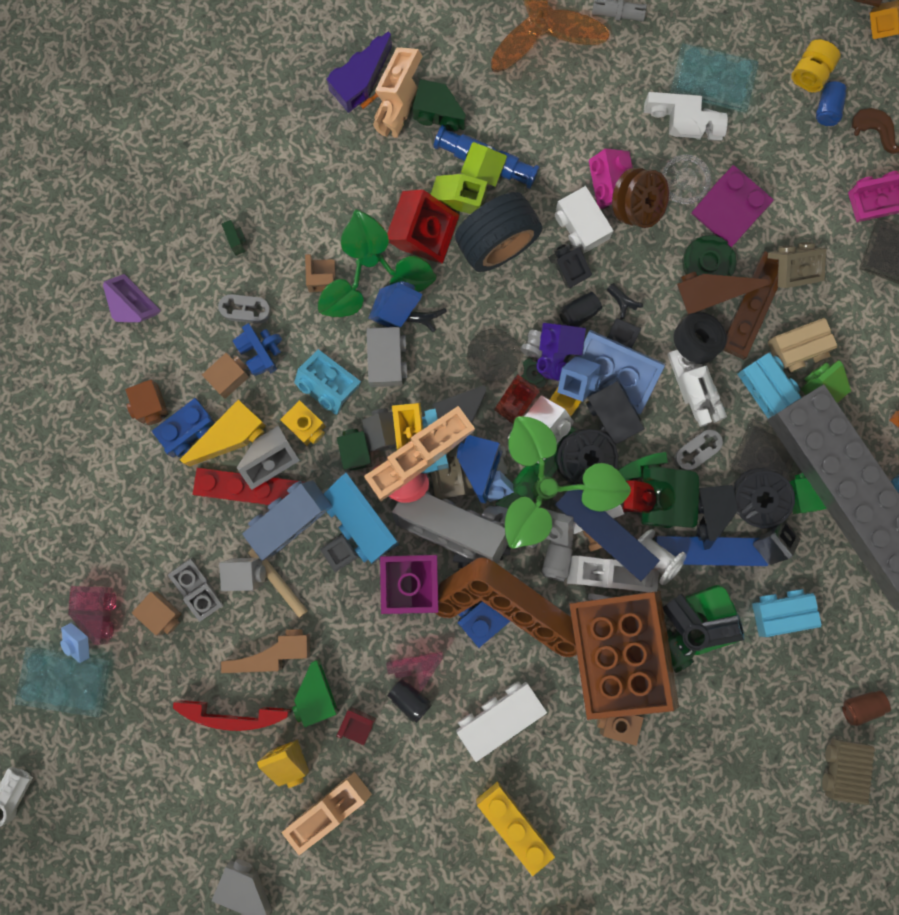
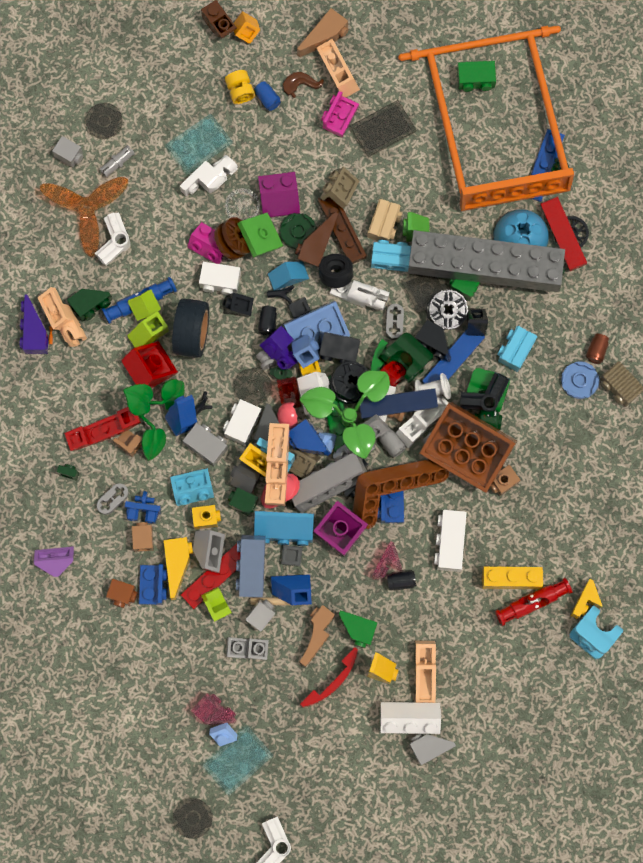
camera: 50 degrees left, 5 degrees down
(157, 614) = (244, 678): medium nougat brick -> none
(214, 515) = (216, 604): none -> lime panel
(257, 842) = (410, 718): none -> white brick
(300, 587) = (292, 589): none -> blue slope
(306, 233) = (101, 430): none -> red slope
(356, 726) = (392, 619): dark red panel -> none
(442, 376) = (242, 422): none -> white brick
(489, 419) = (287, 415): none -> coral hair
(511, 877) = (520, 607): none -> red piece
(542, 71) = (112, 249): none -> white piece
(651, 290) = (288, 274): none -> dark azure slope
(669, 222) = (260, 234): none -> bright green plate
(802, 715) = (577, 385): none -> medium blue tile

